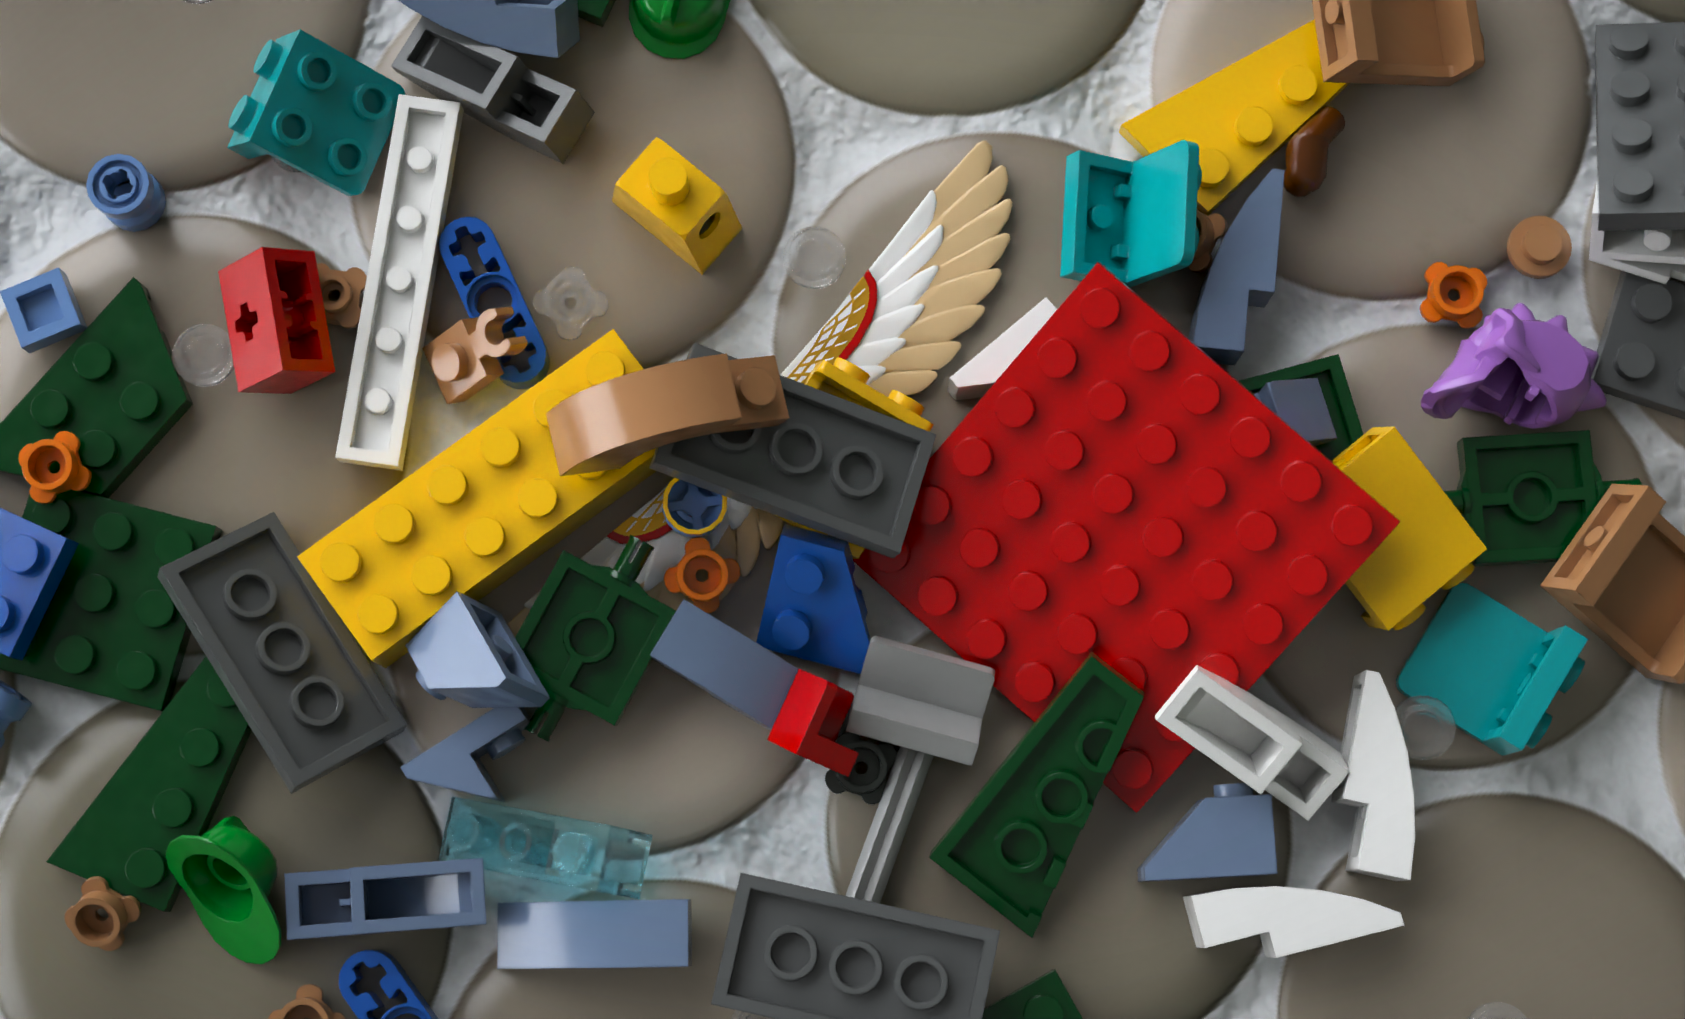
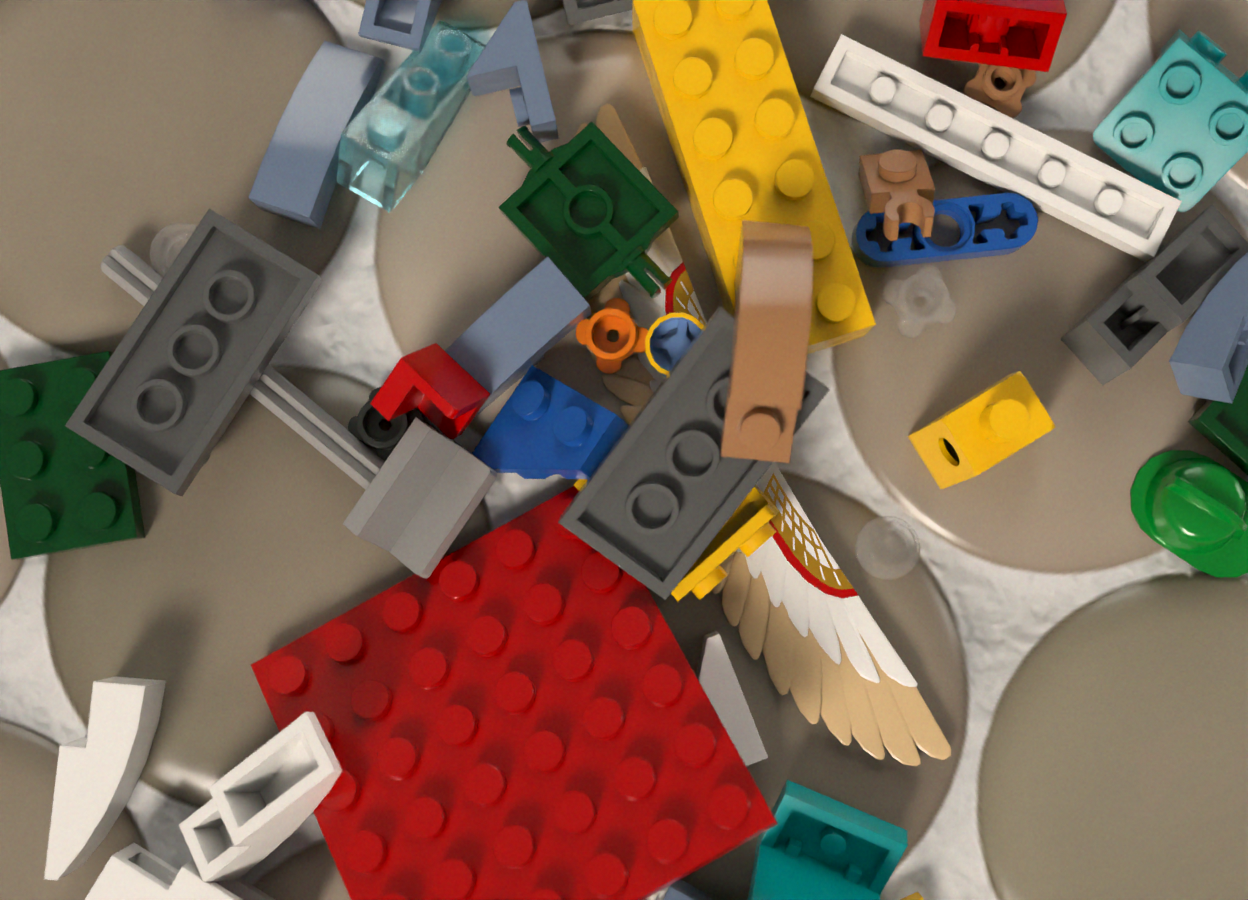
camera: 110 degrees right, 5 degrees up
(474, 658) = (602, 96): sand blue slope -> none
(1032, 808) = (286, 570): dark green wing -> none
(1217, 839) = (194, 727): sand blue slope -> none

